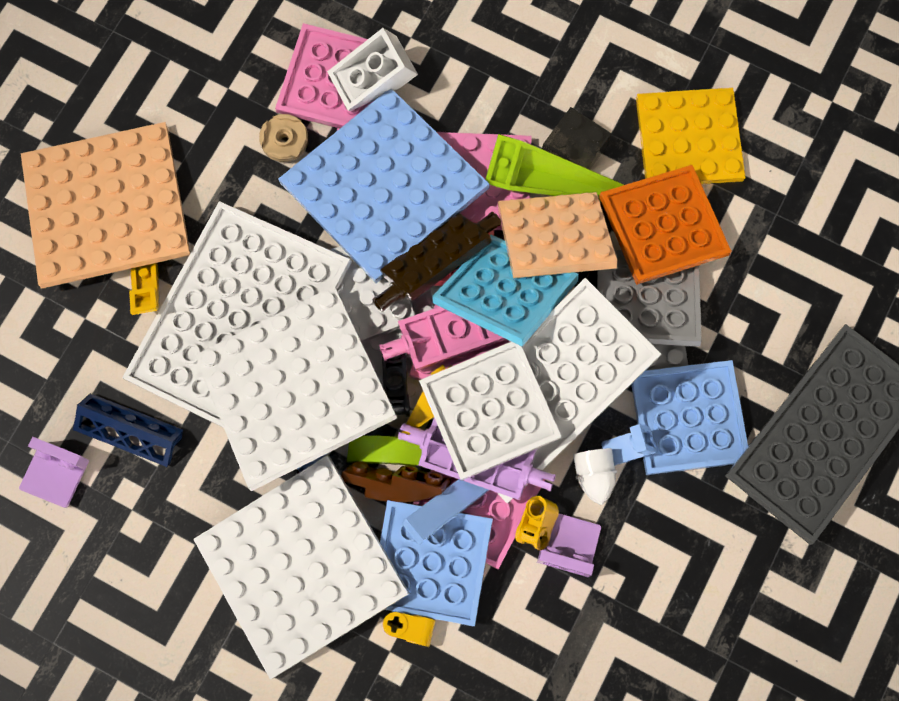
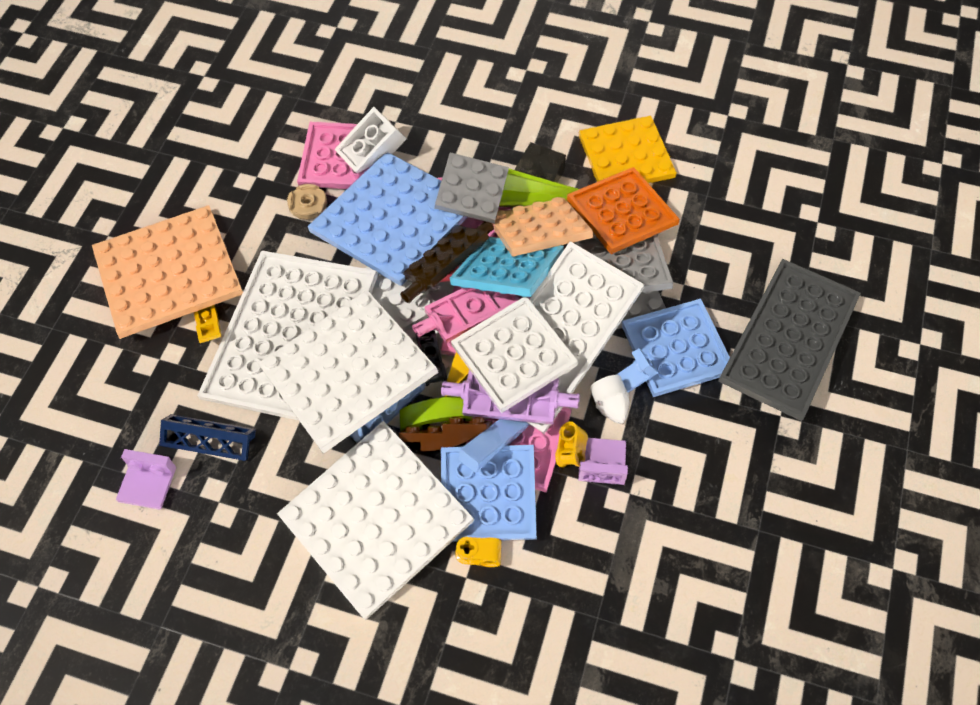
camera: 10 degrees left, 15 degrees down
(483, 168) = (471, 188): none -> light grey plate

